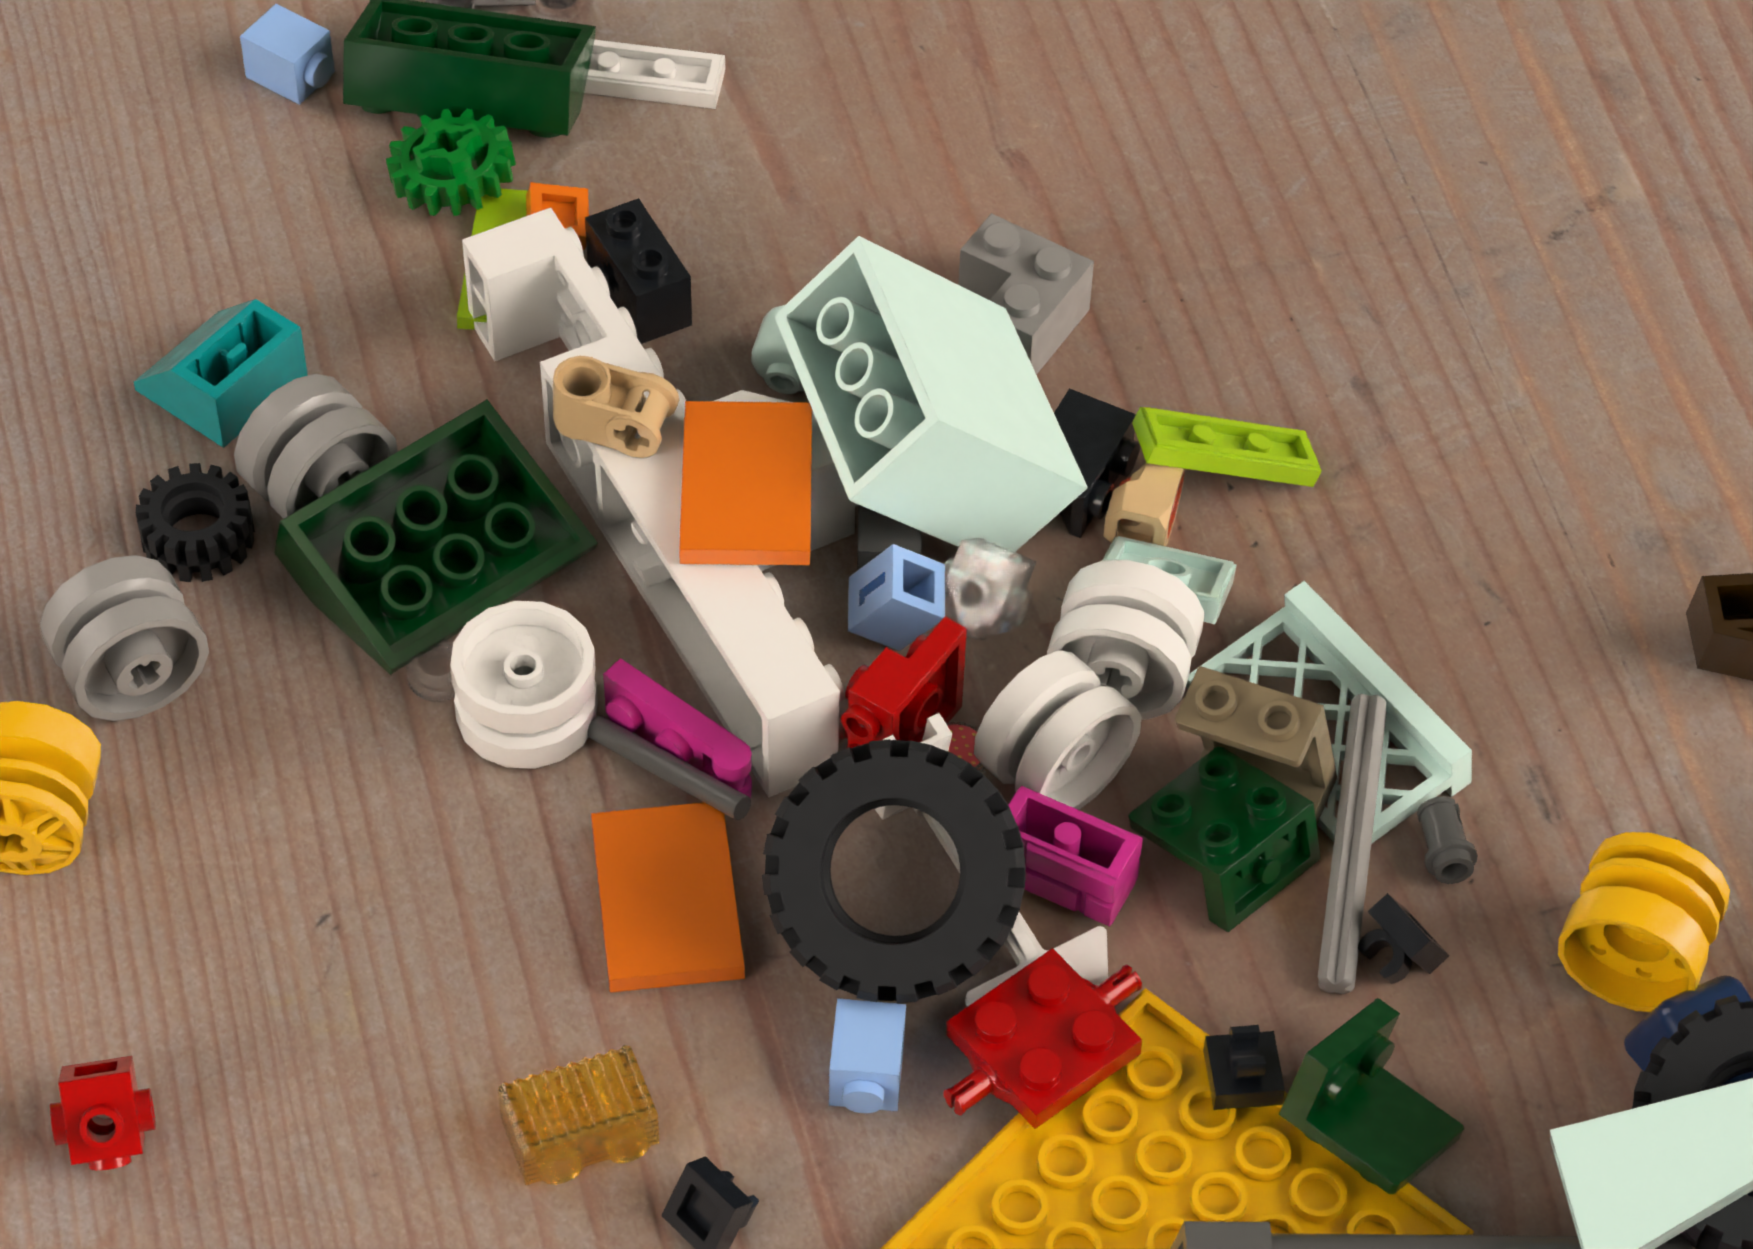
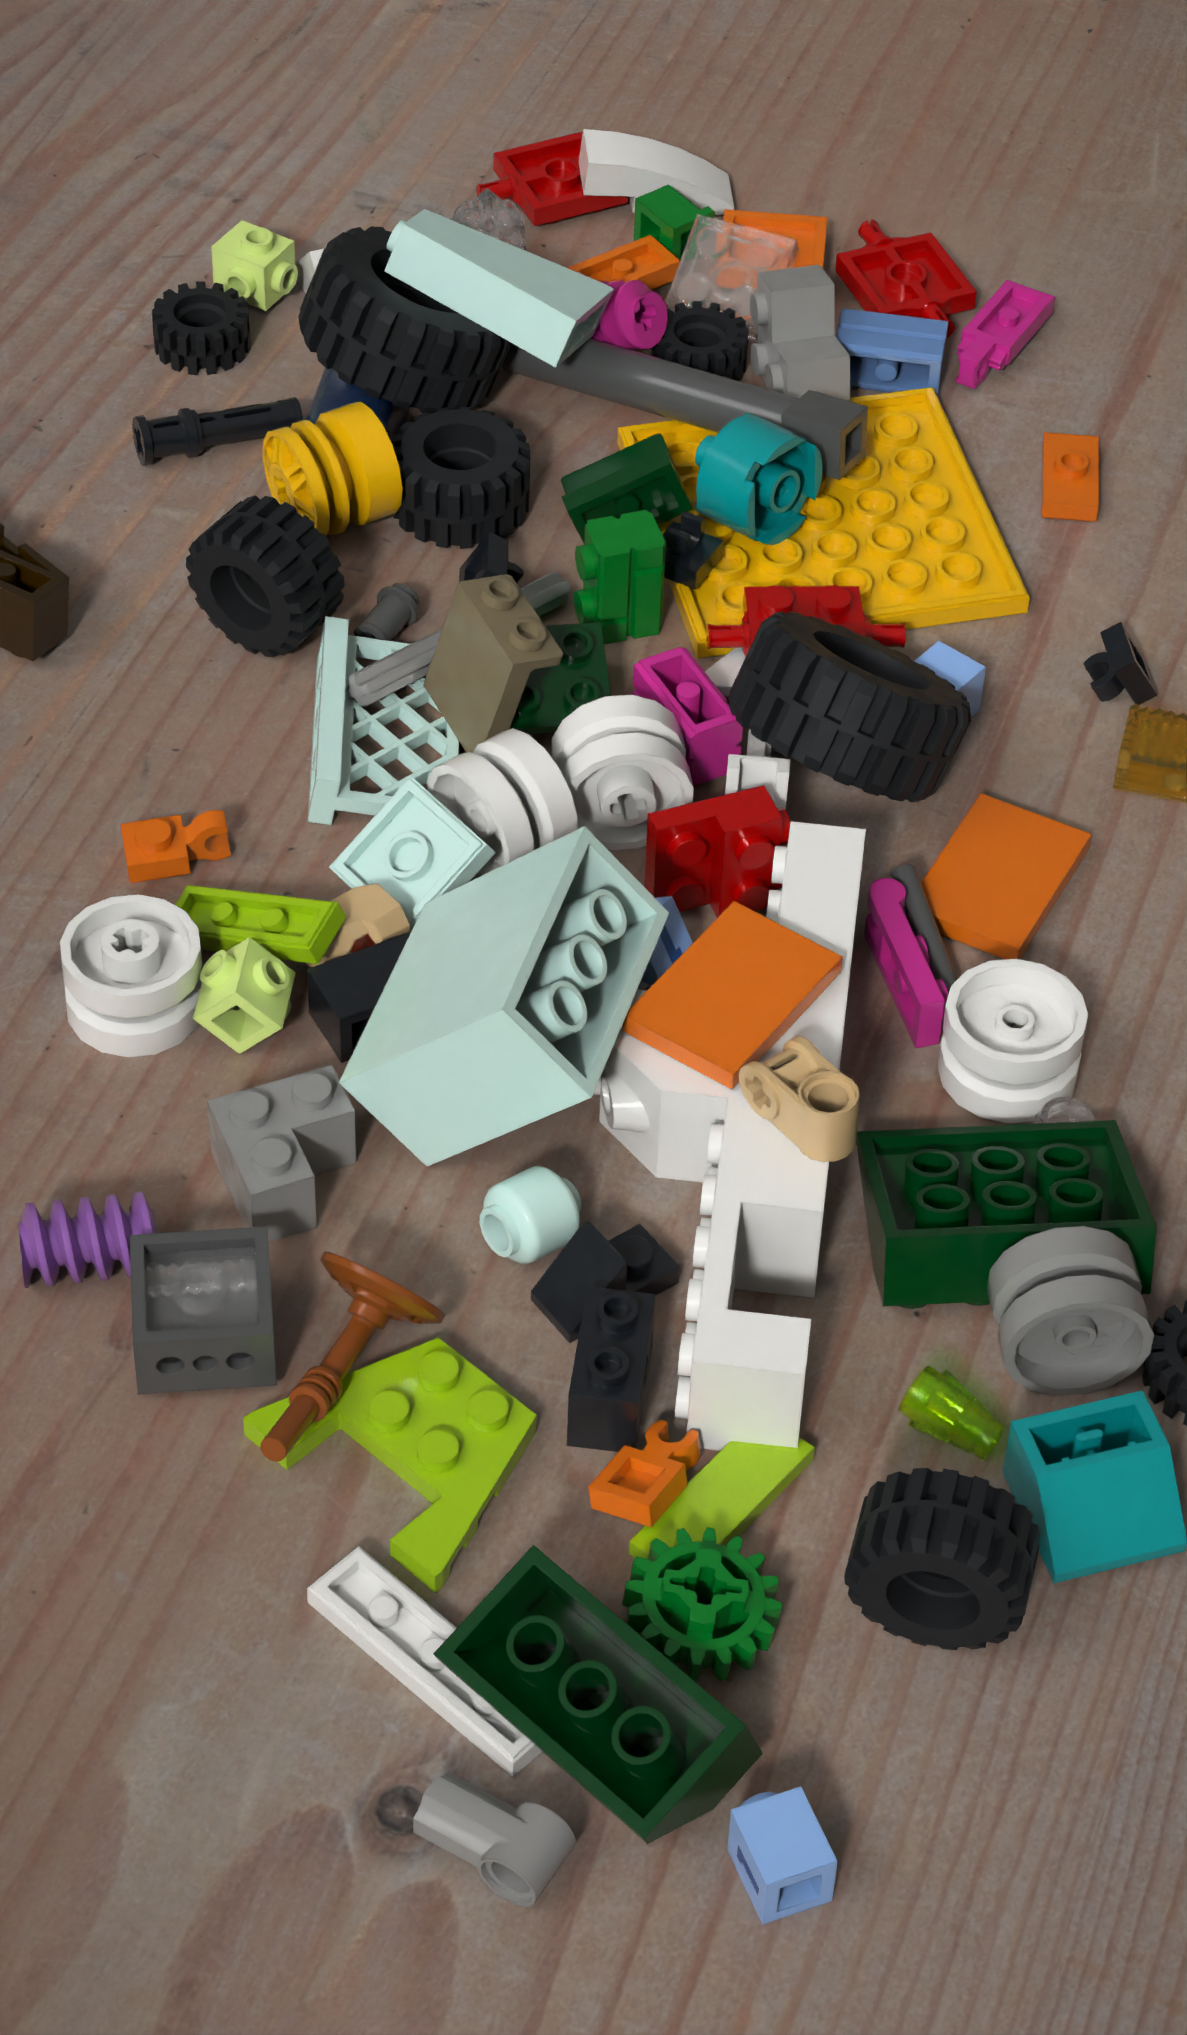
camera: 145 degrees left, 5 degrees down
(289, 223) = (943, 1559): none -> black tyre
(377, 380) = (950, 1413): none -> clear neon green cone
(707, 352) = (624, 1263): none -> black slope
(740, 199) = (435, 1428): none -> lime wing
(838, 201) = (373, 1305): none -> dark orange dish
(954, 149) = (202, 1310): none -> dark grey piece
(1084, 166) = (82, 1238): none -> medium lavender piece
(1170, 380) = (244, 995): none -> yellowish green brick
(1233, 1152) = (757, 478): none -> teal brick
(1259, 962) = (622, 576): none -> green brick
(1270, 355) = (131, 975): none -> white wheel
(1383, 509) = (164, 847): none -> orange plate
(1550, 982) = (462, 476): none -> black tyre
(1560, 744) = (265, 576): none -> black tyre

